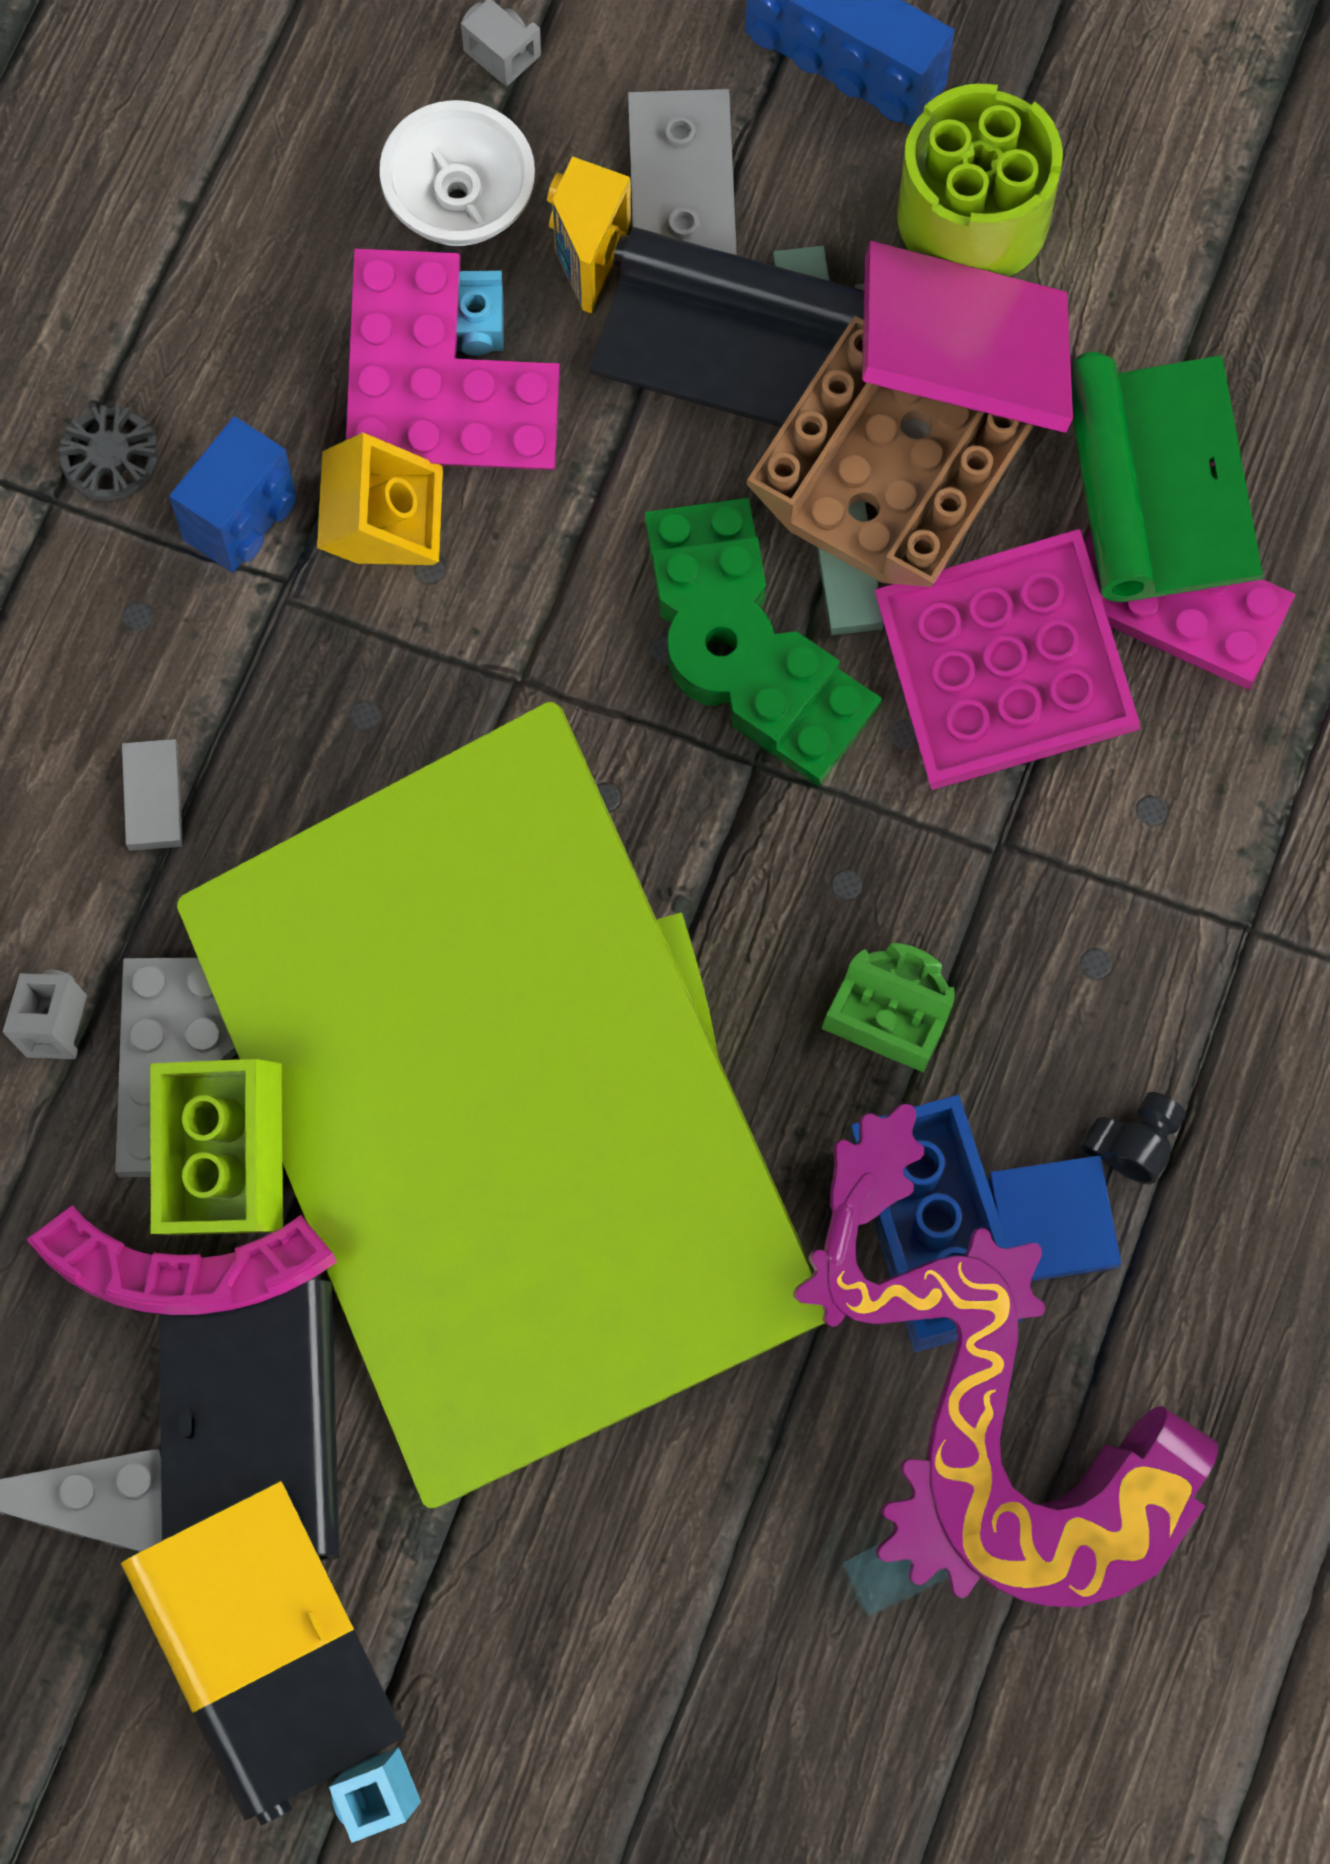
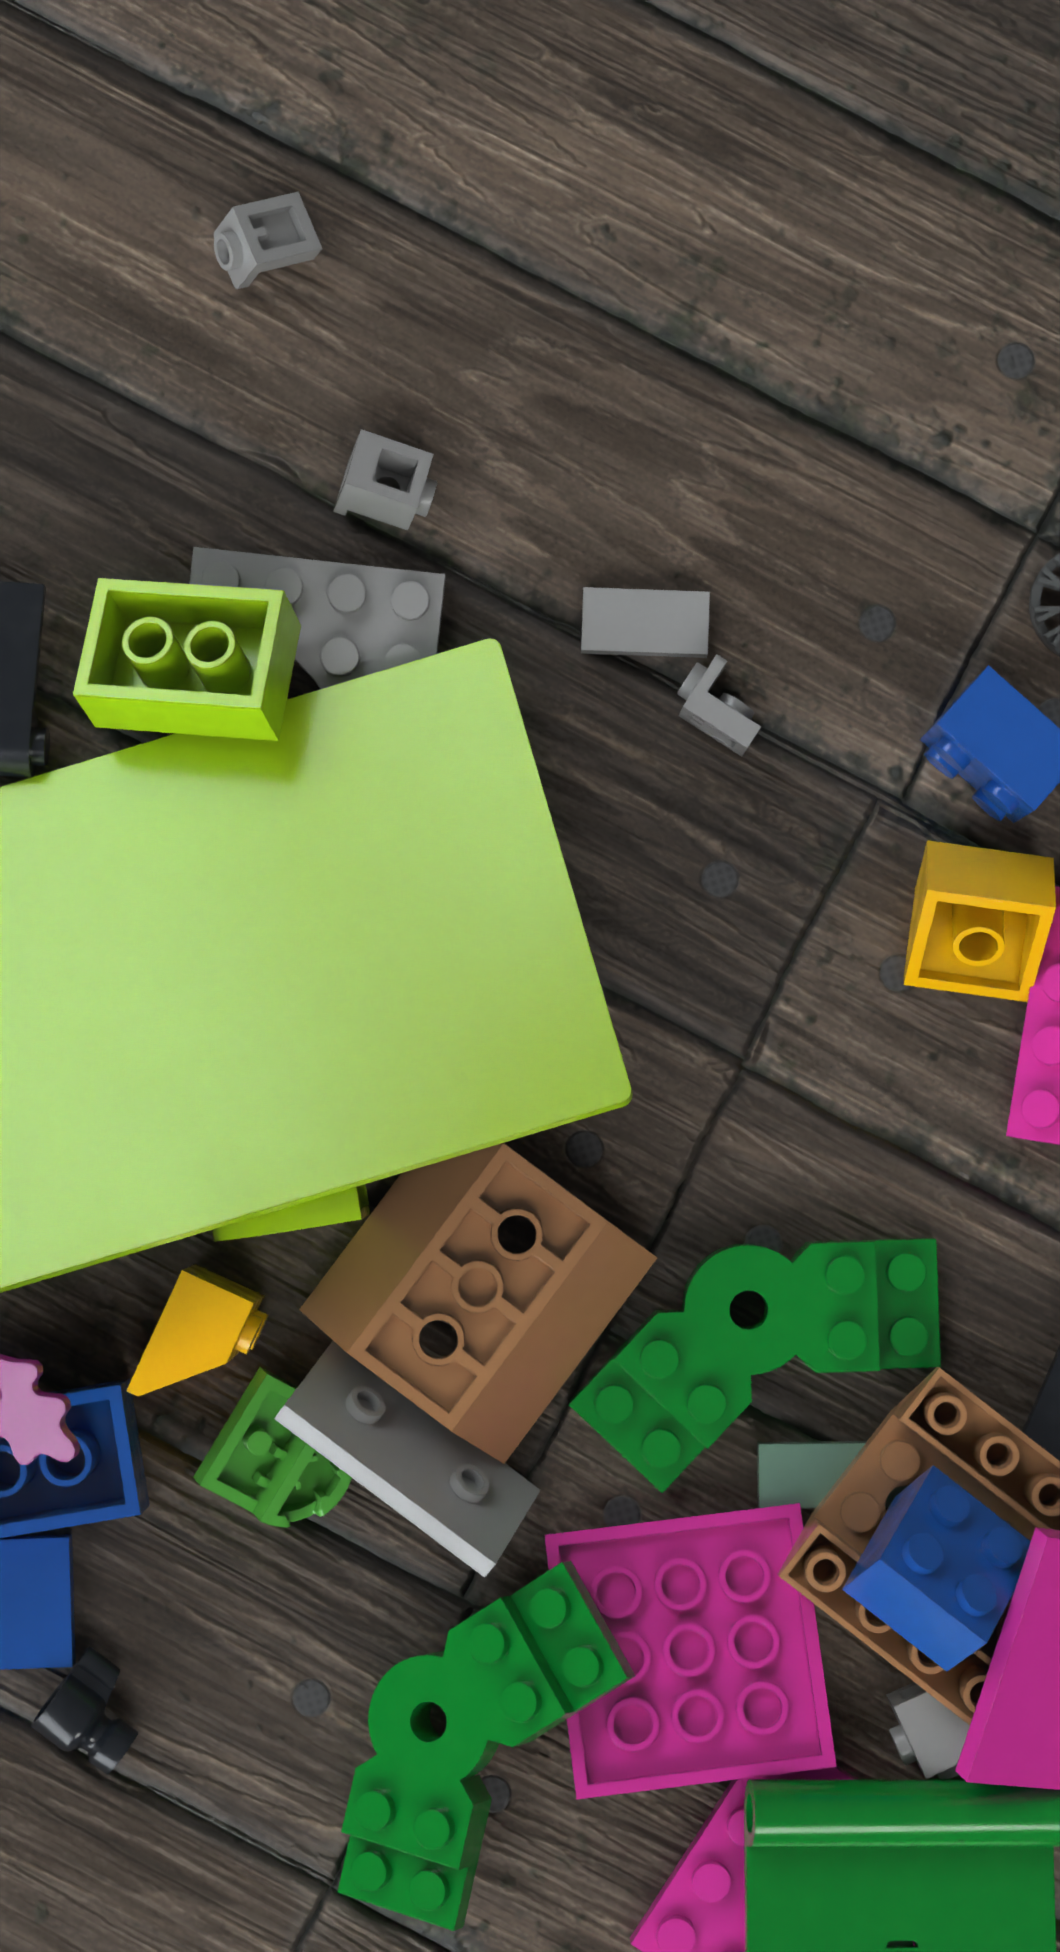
camera: 90 degrees right, 15 degrees up
(180, 1282) = (47, 603): dark pink tile -> none
(228, 725) = (722, 718): none -> light grey bracket
(745, 820) = (516, 1315): none -> medium nougat slope
(798, 1074) = (199, 1329): none -> yellow slope
(878, 892) = (409, 1459): none -> light grey plate
(907, 458) = (939, 1569): none -> blue brick
(1040, 472) = (926, 1732): none -> light grey brick
(1051, 794) = (502, 1679): none -> green plate

